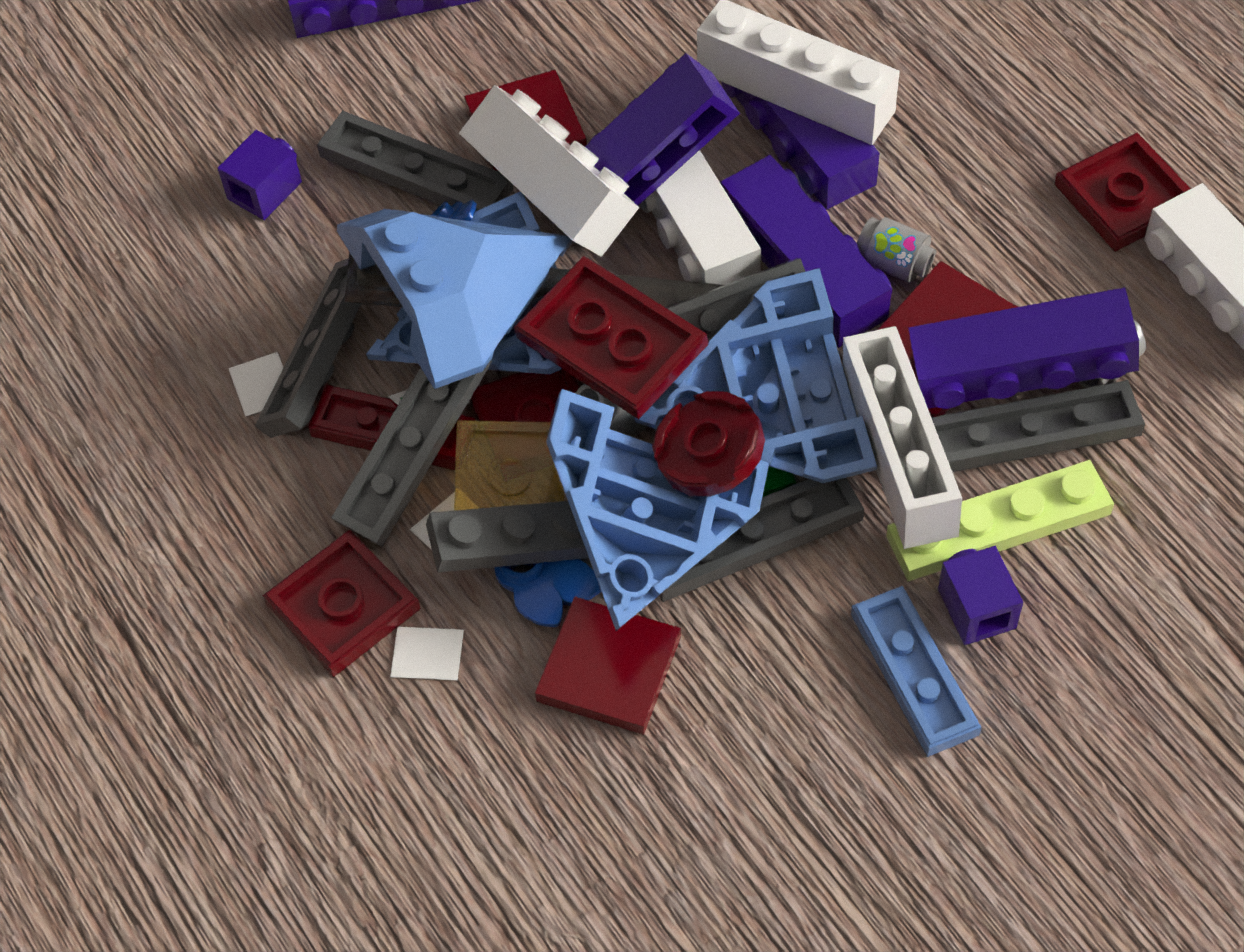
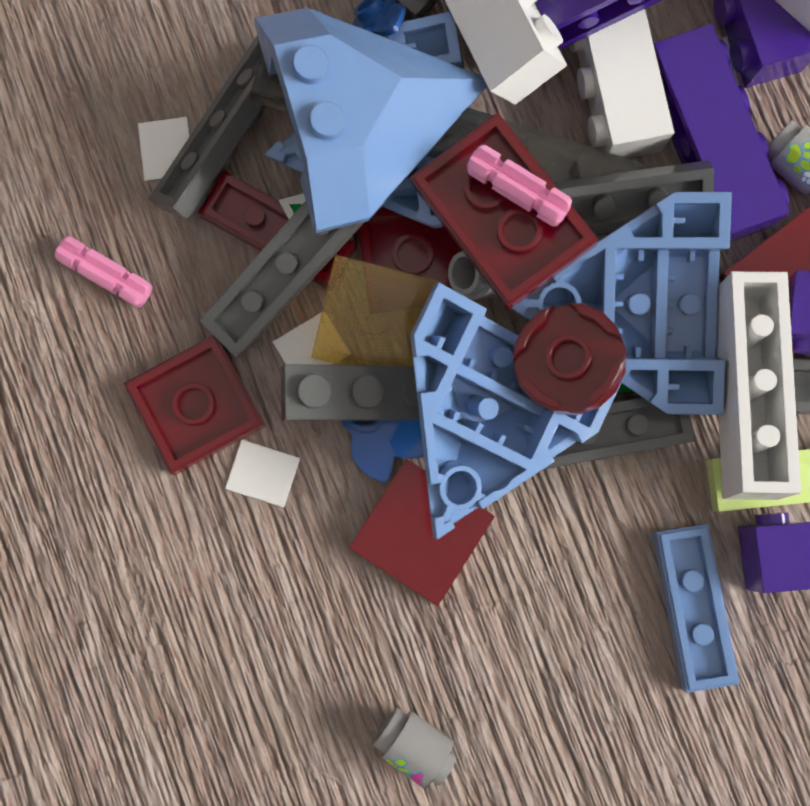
camera: 10 degrees right, 25 degrees up
(221, 501) = (103, 271): none -> bright pink axle
(618, 303) = (519, 185): none -> bright pink axle
(653, 866) = (415, 748): none -> light grey brick

